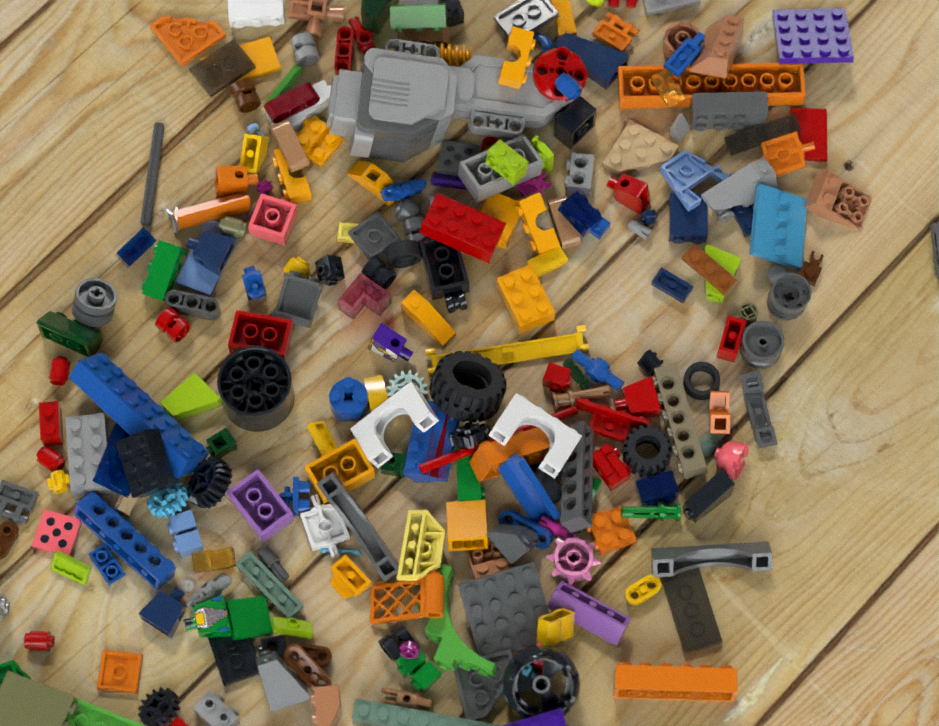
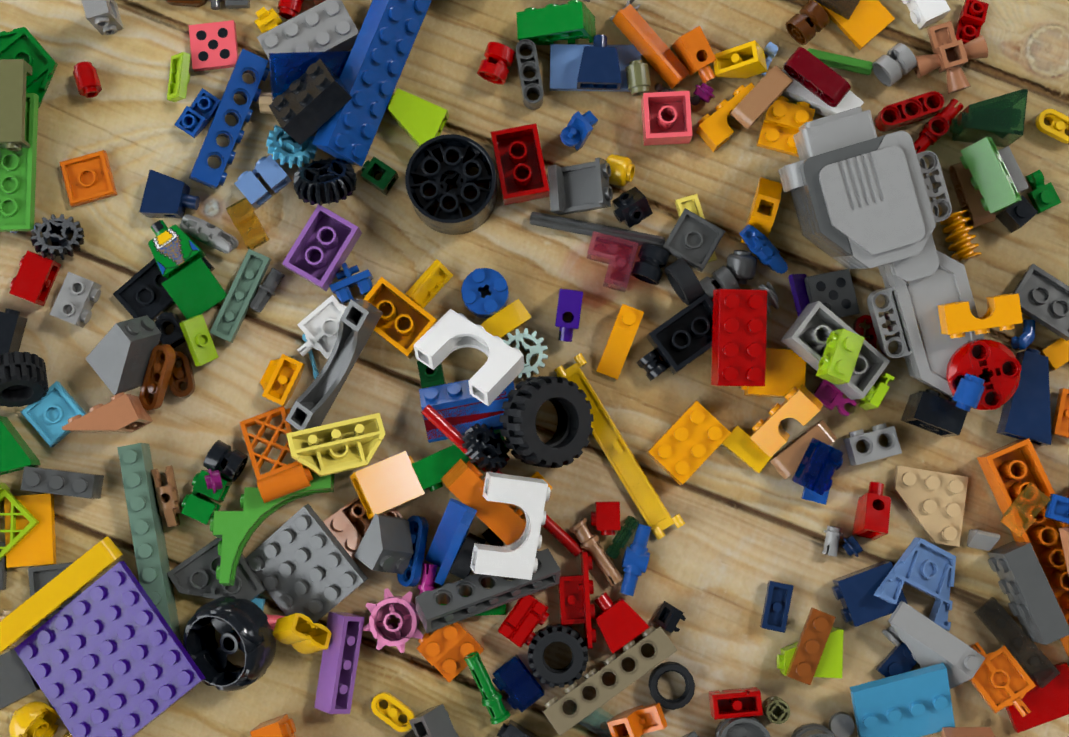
camera: 70 degrees right, 15 degrees up
(331, 308) = (587, 228): none -> dark grey axle

